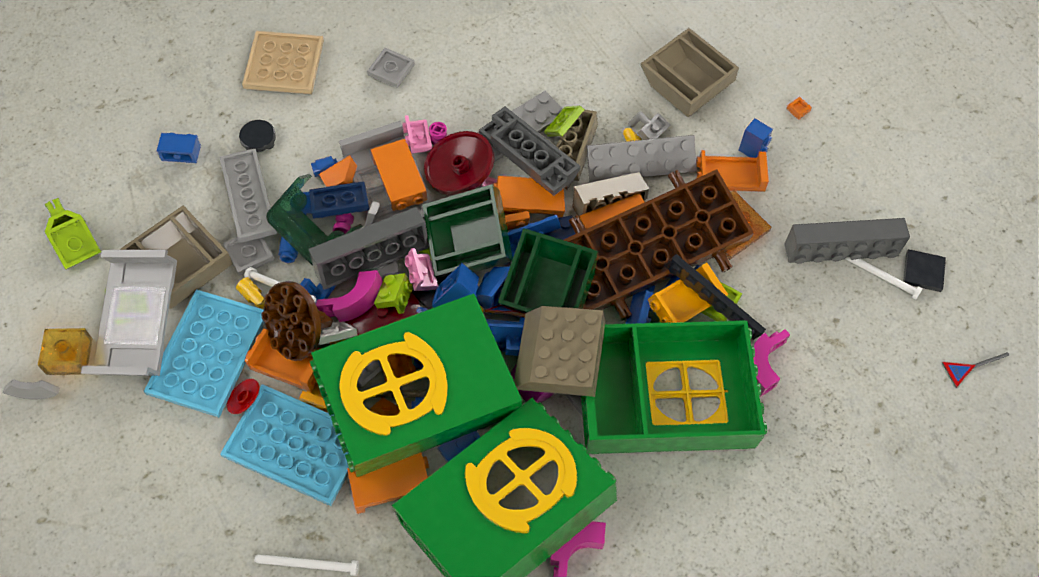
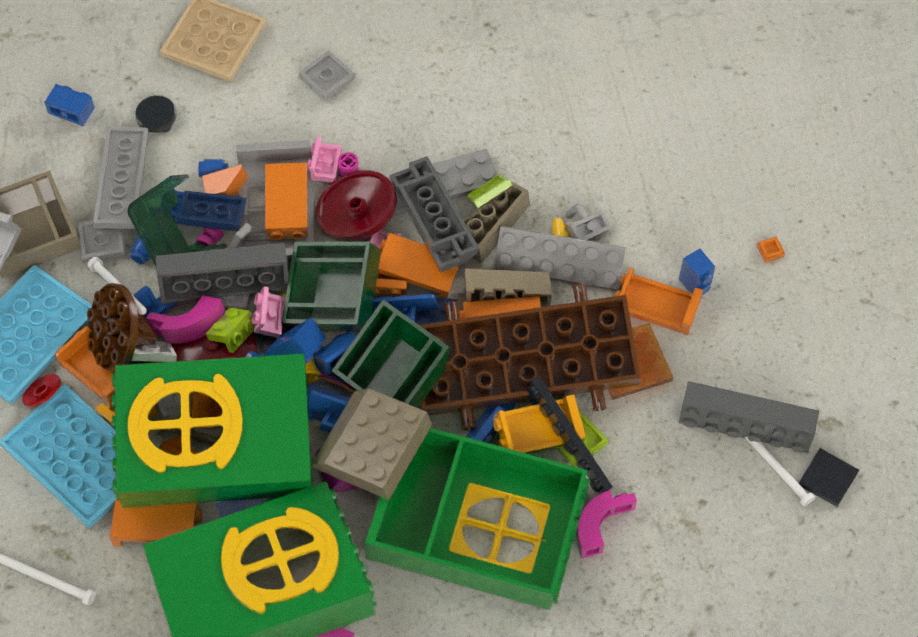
camera: 20 degrees right, 0 degrees up
(251, 292) = (87, 282): yellow hinge -> none
(689, 72) = (657, 172): dark tan slope -> none
(959, 371) = (814, 599): piece -> none

